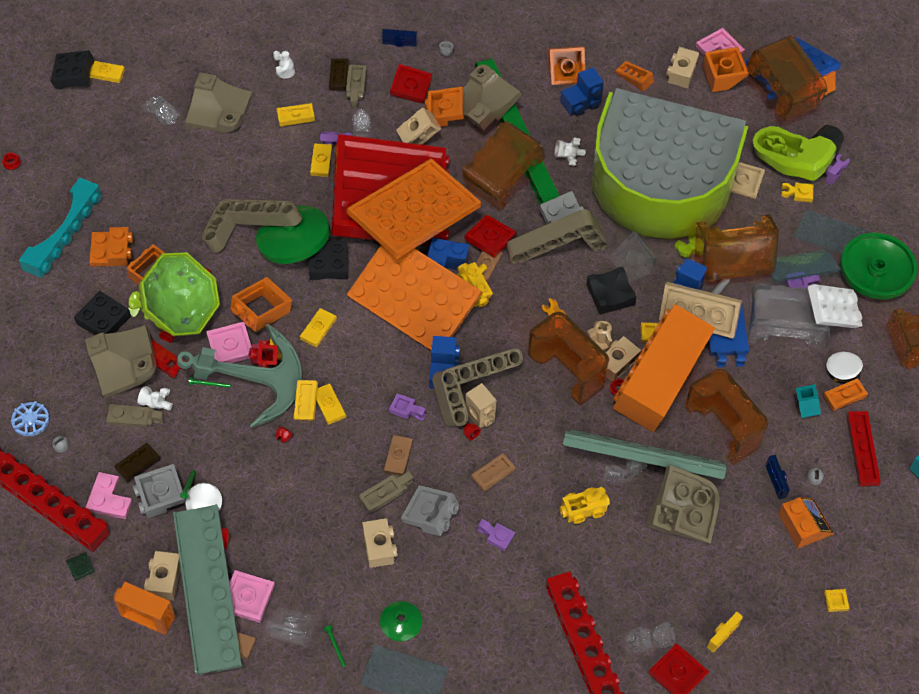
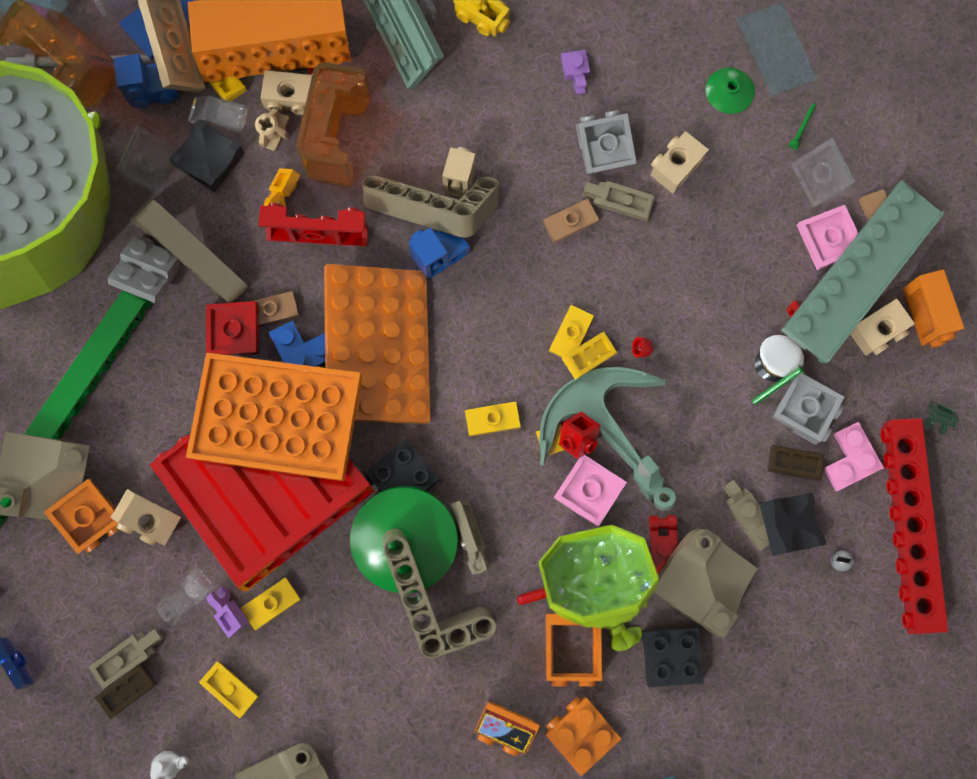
camera: 130 degrees left, 20 degrees up
(30, 418) = (843, 620): light blue wheel -> none
(106, 425) = (791, 524): none -> black brick
(151, 214) = (506, 728): none -> slope
(154, 399) = (716, 507): white piece -> none
(265, 268) = (470, 536): none -> dark tan hinge
(272, 293) = (495, 493): orange window -> none
(405, 406) = (514, 254): medium lavender plate -> none
(410, 83) = (75, 592): red plate -> none
(471, 428) = (486, 170): red hinge -> none
(474, 276) = (309, 299): yellow brick -> none
(493, 472) = (515, 118): medium nougat plate -> none
(501, 163) = (128, 373): clear orange windscreen -> none
(527, 295) = (348, 230): none -> red piece
(569, 150) = (44, 335): white piece -> none
(633, 313) = (219, 112): none -> clear slope

